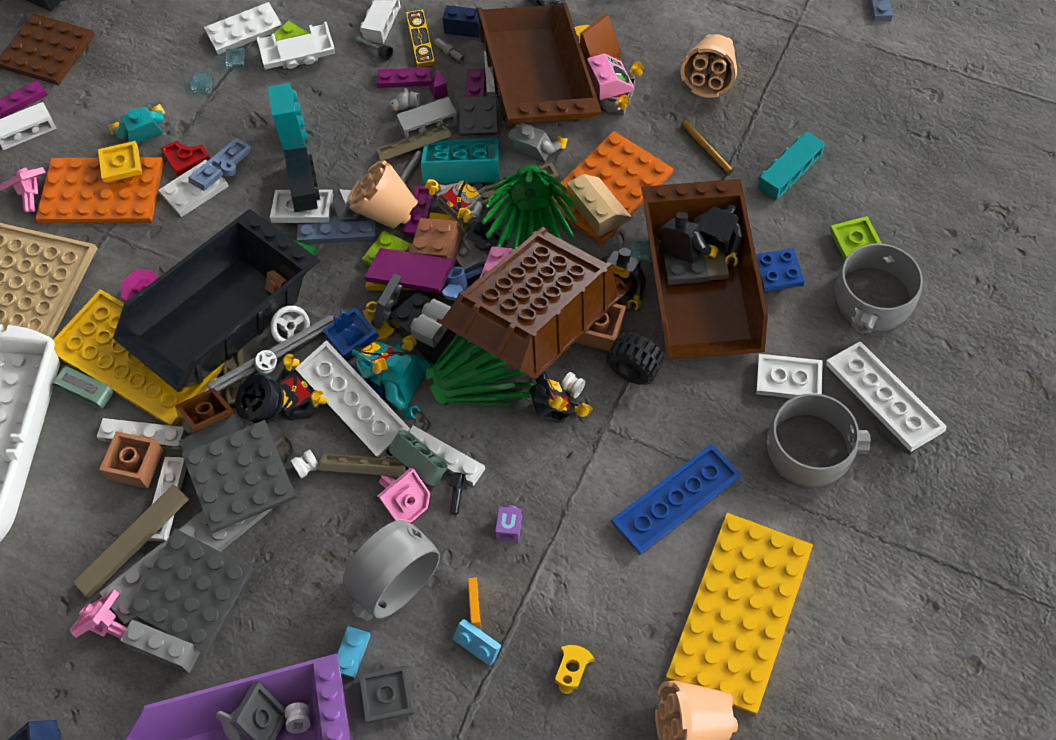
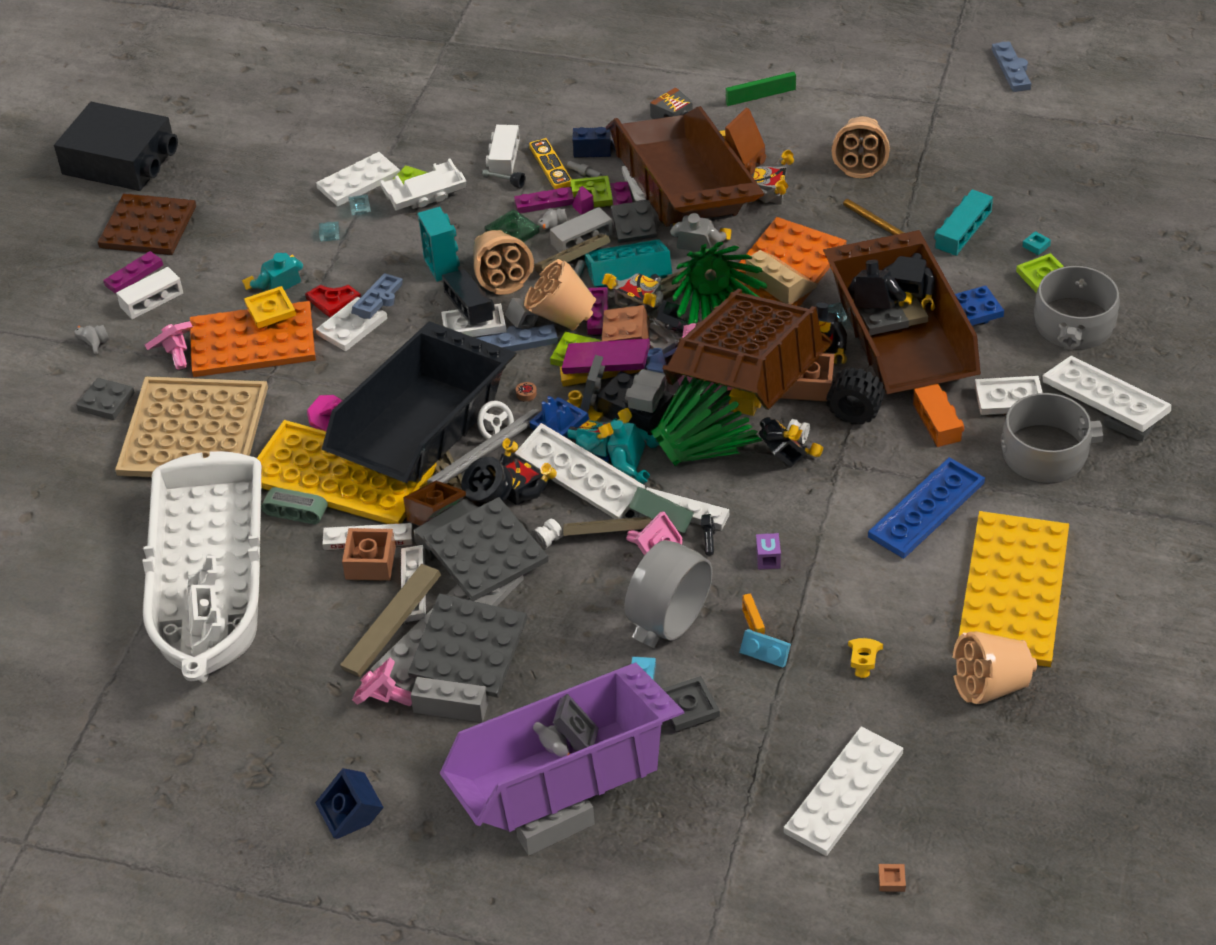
camera: 10 degrees left, 15 degrees down
(267, 358) = (482, 446): white wheel -> none
(274, 281) = (468, 385): nougat plate -> none
(297, 718) = (609, 719): white wheel -> none
(331, 291) = (526, 391): none -> nougat tile
(340, 145) = (501, 262): none -> light nougat cone
(365, 106) = (515, 225): none -> clear green plate
(454, 71) = (597, 186): none -> lime plate
(608, 76) = (761, 166): bright pink slope -> none
(713, 389) = (938, 415): none -> orange brick
(856, 201) = (1036, 243): none -> teal plate

